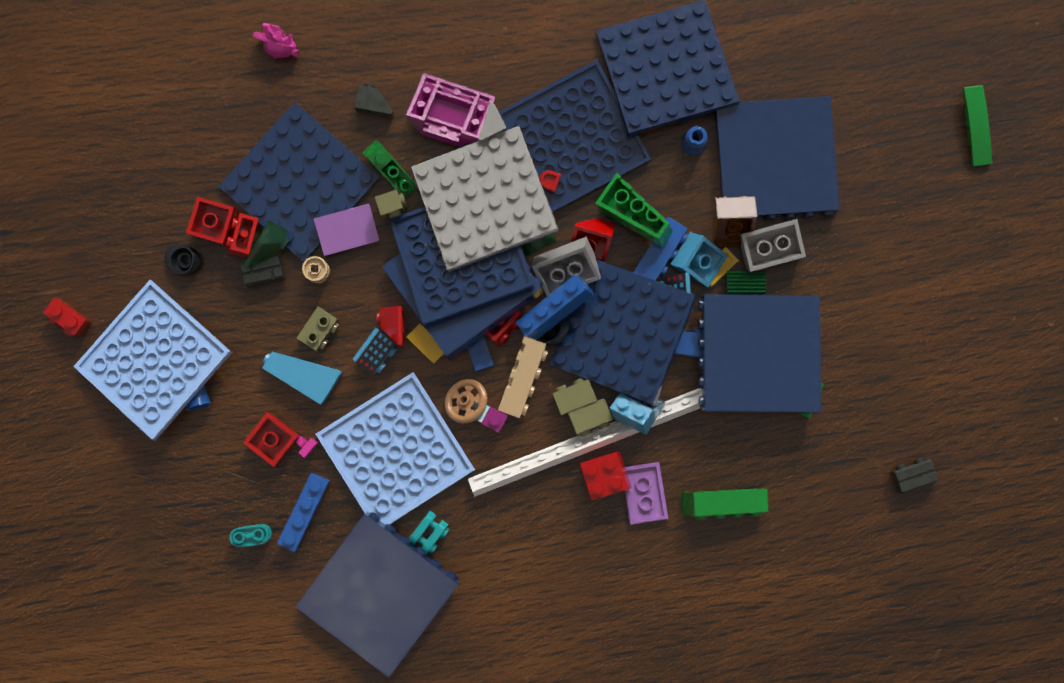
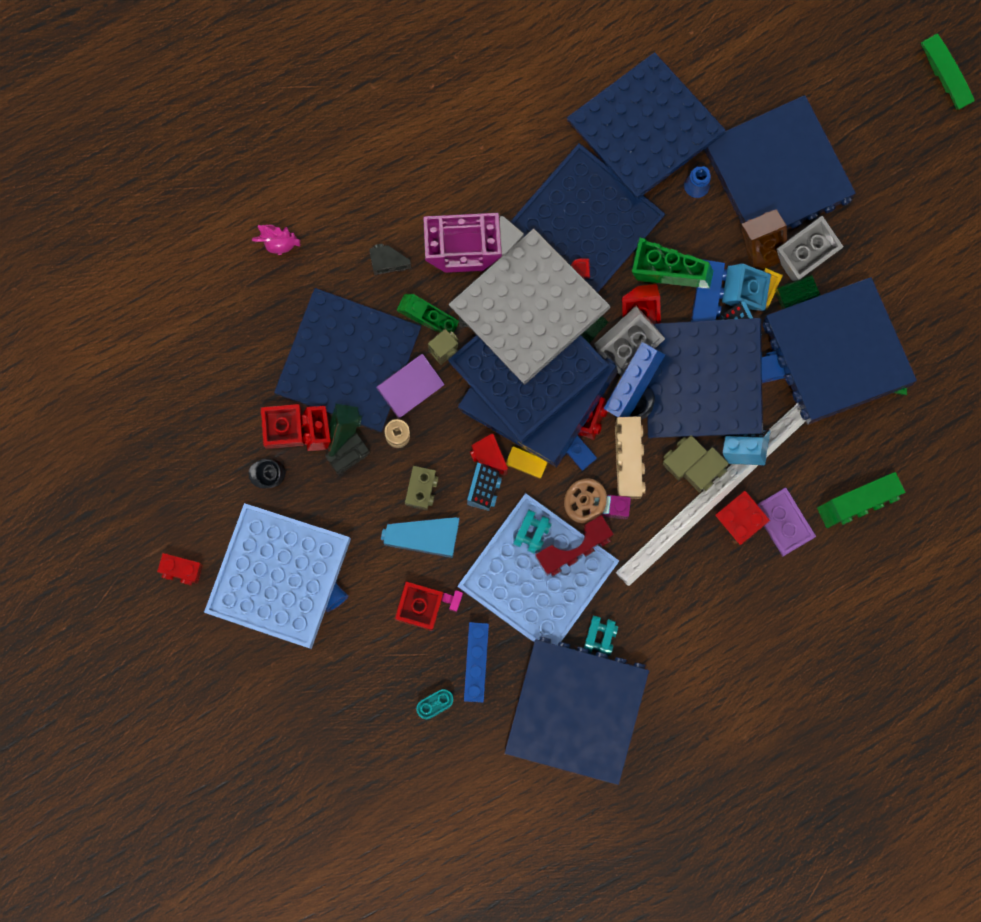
camera: 25 degrees left, 5 degrees down
(402, 423) = (542, 527): none -> teal brick
(412, 444) = (553, 559): none -> dark red arch

